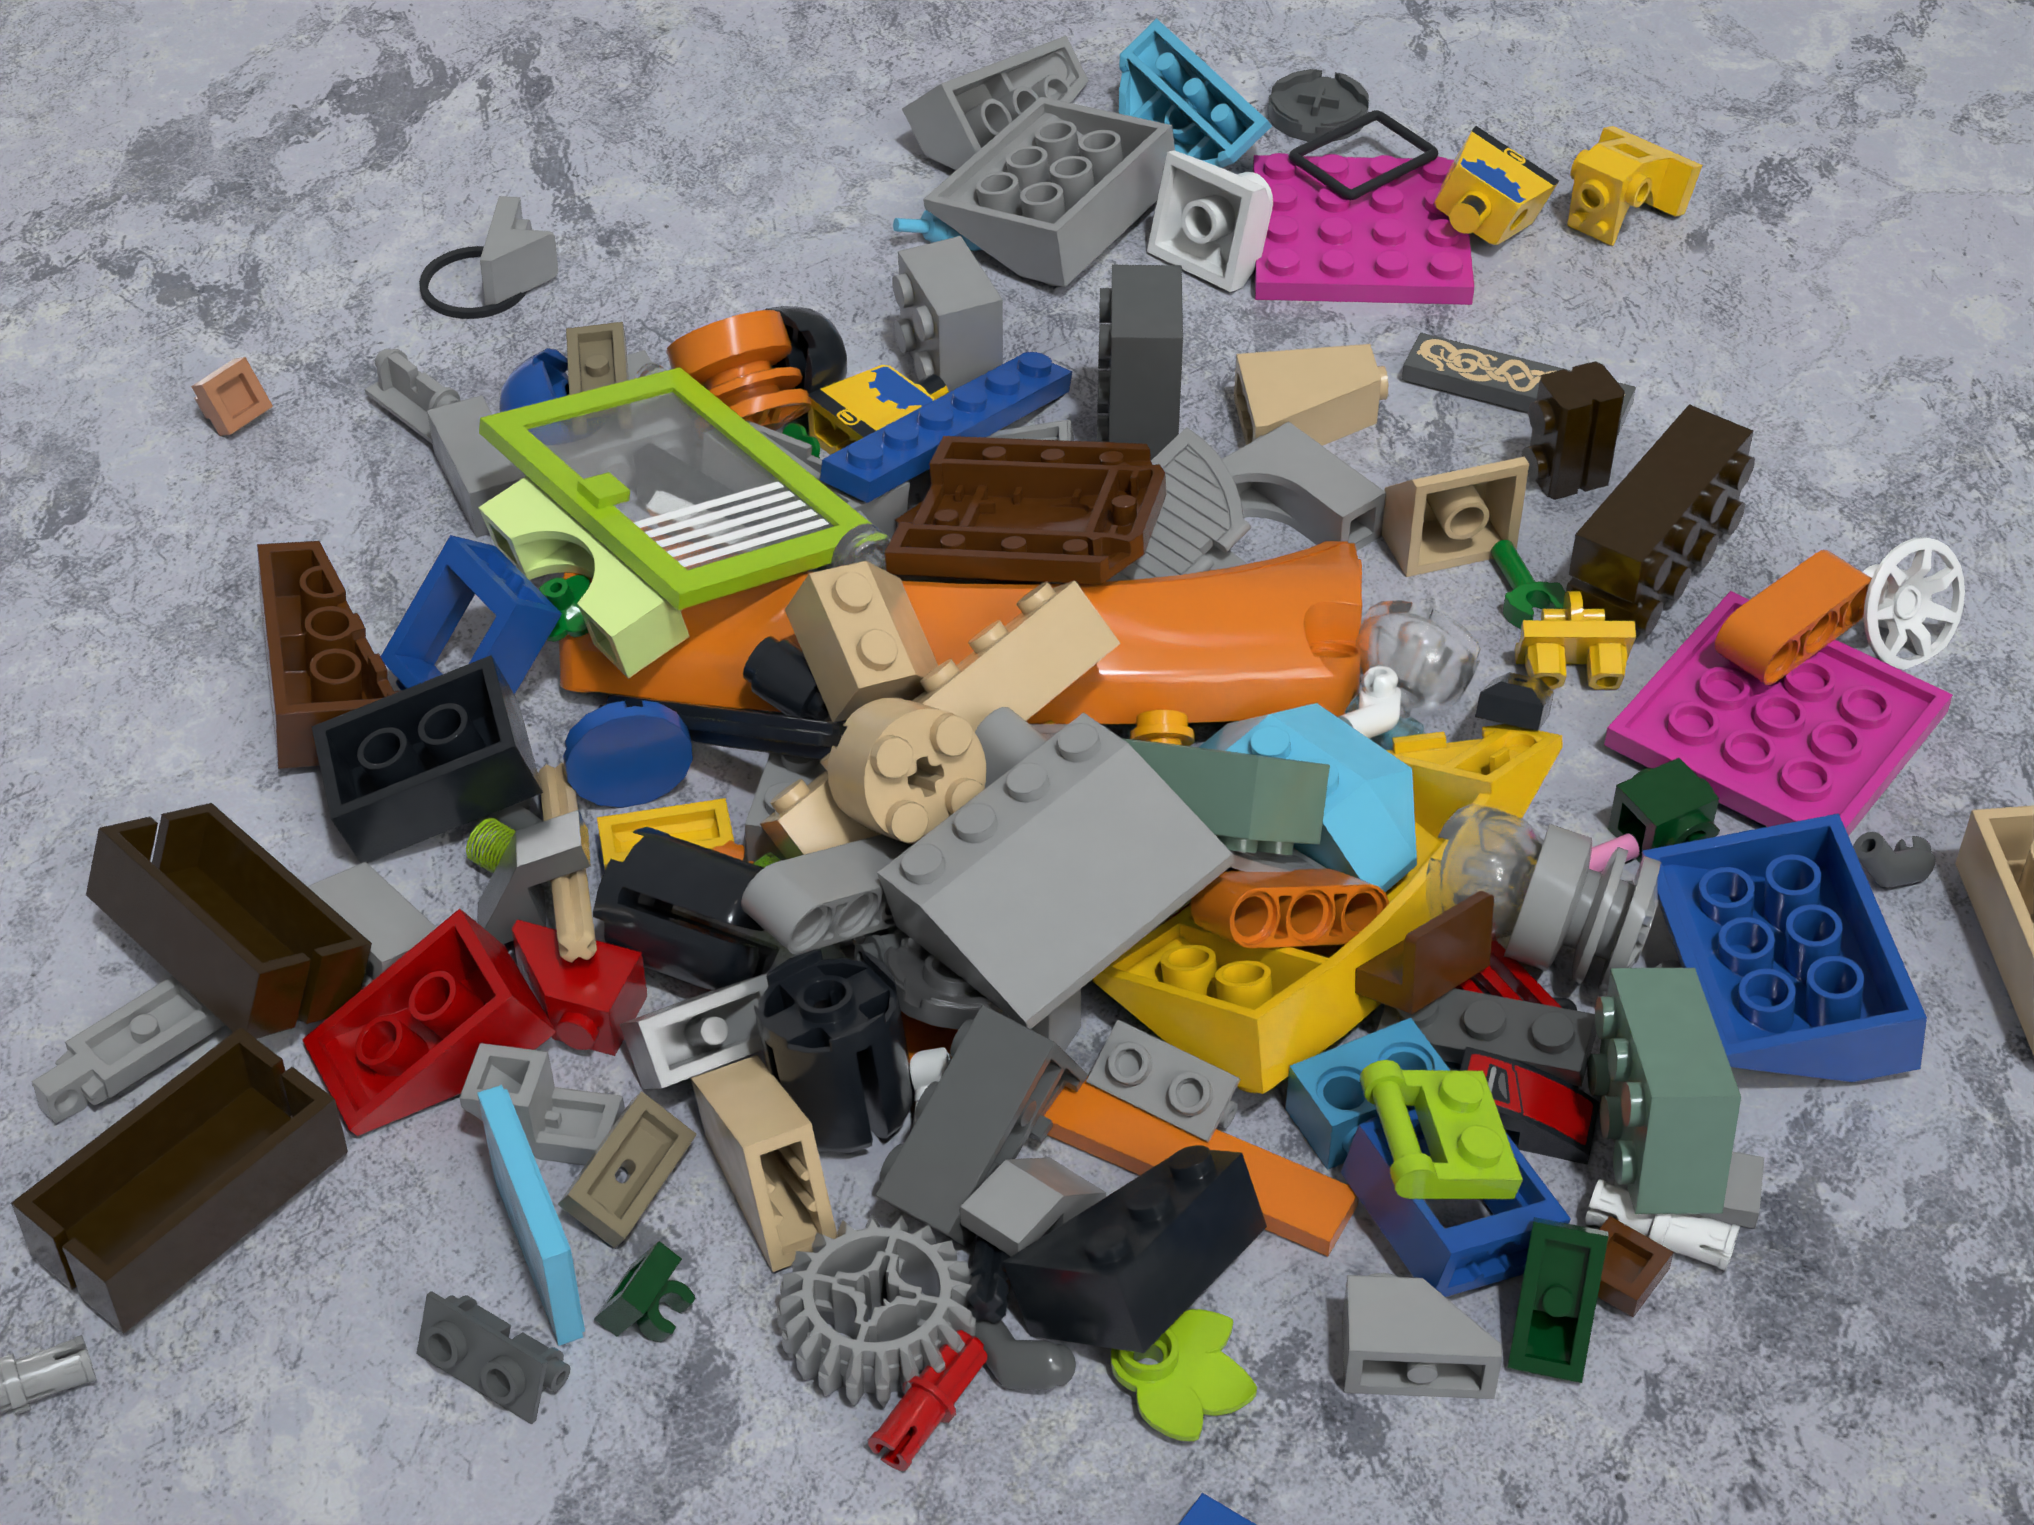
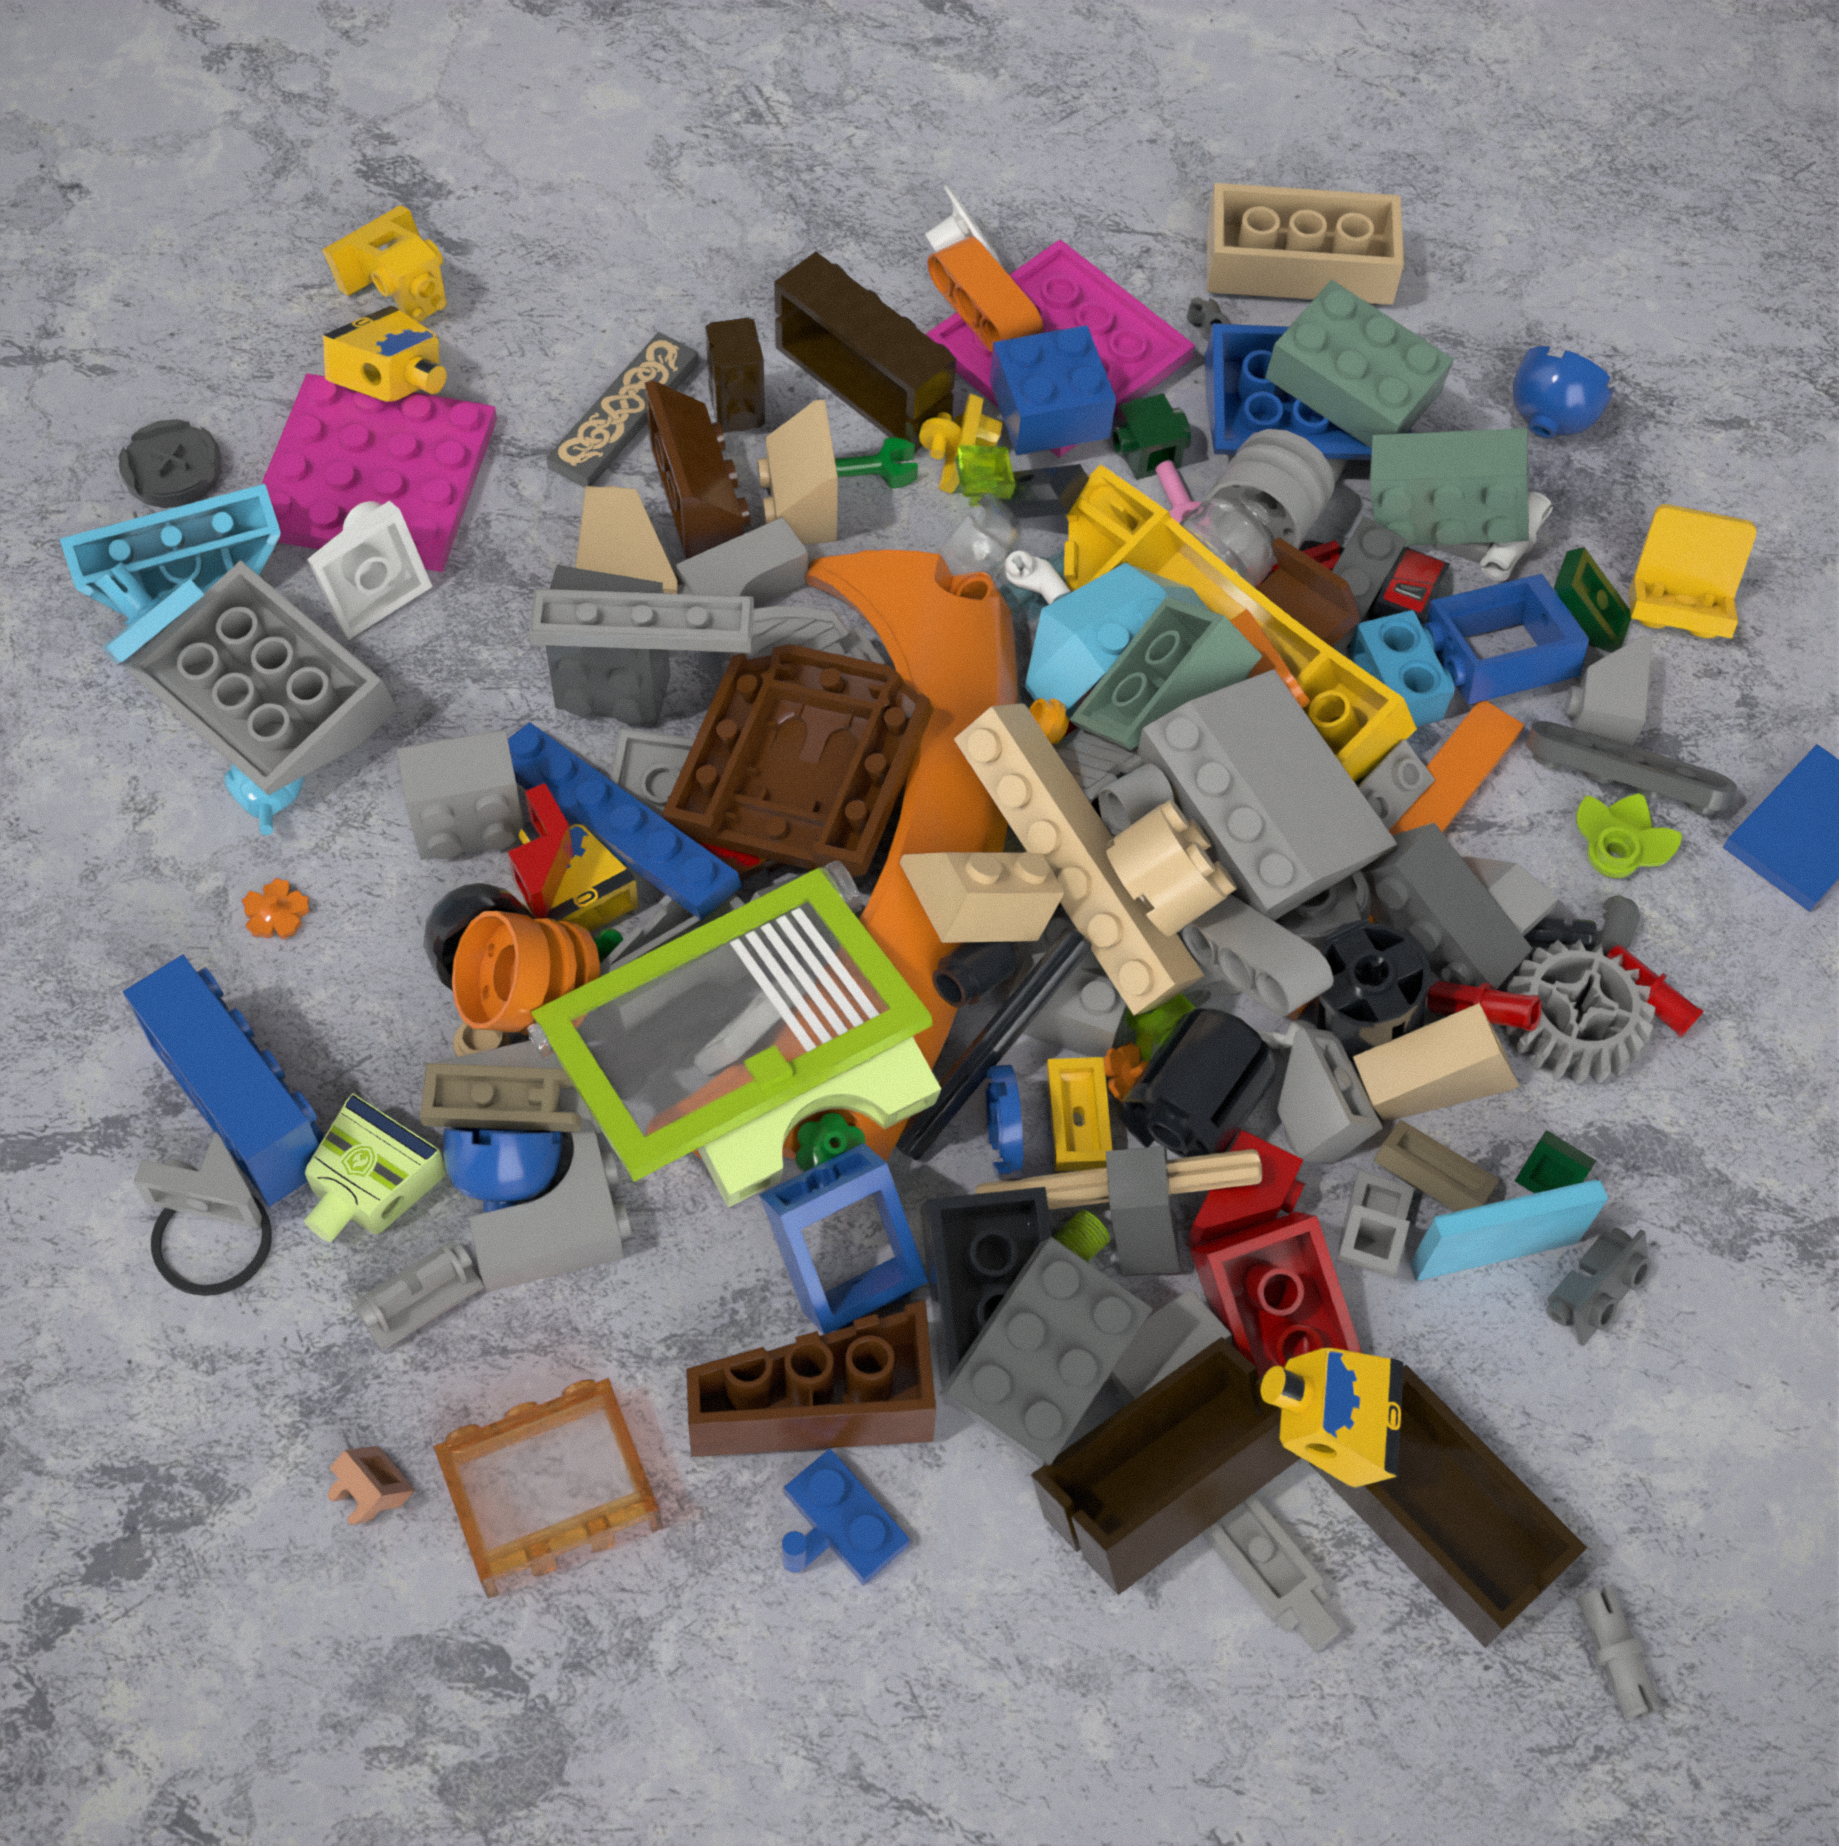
camera: 85 degrees left, 15 degrees up
(191, 718) = (842, 1519): none -> blue plate
(221, 499) = (546, 1482): none -> window
(245, 992) = (1340, 1412): none -> yellow torso
(325, 766) = (1045, 1352): none -> dark grey brick
(526, 328) = (368, 1171): none -> yellowish green torso
(606, 232) = (227, 1076): none -> blue brick
(820, 258) = (275, 911): none -> orange plant
(848, 1185) = (1499, 1006): none -> red axle
(860, 366) = (542, 862): none -> red slope
(973, 108) = (99, 724): light grey wedge -> none
(1096, 90) = (144, 614): none -> medium azure tile
(1121, 326) = (641, 620): none -> light grey tile
(1139, 1253) = (1557, 829): black wedge -> none
(1290, 1367) = (1646, 771): none -> dark grey plate
(1430, 154) = (235, 413): black piece -> none
(1430, 412) = (693, 470): none -> reddish brown slope
(1459, 1126) = (1487, 619): lime plate -> none
(1511, 639) = (984, 470): none -> clear neon green tile
(1631, 1267) = (1545, 558): reddish brown plate -> none
(1641, 1426) = (1691, 571): none -> yellow bracket
(1666, 684) = (1052, 390): none -> blue brick
(1808, 948) = (1357, 366): none -> sand green brick
(1929, 1244) = (1560, 393): none -> blue cylinder

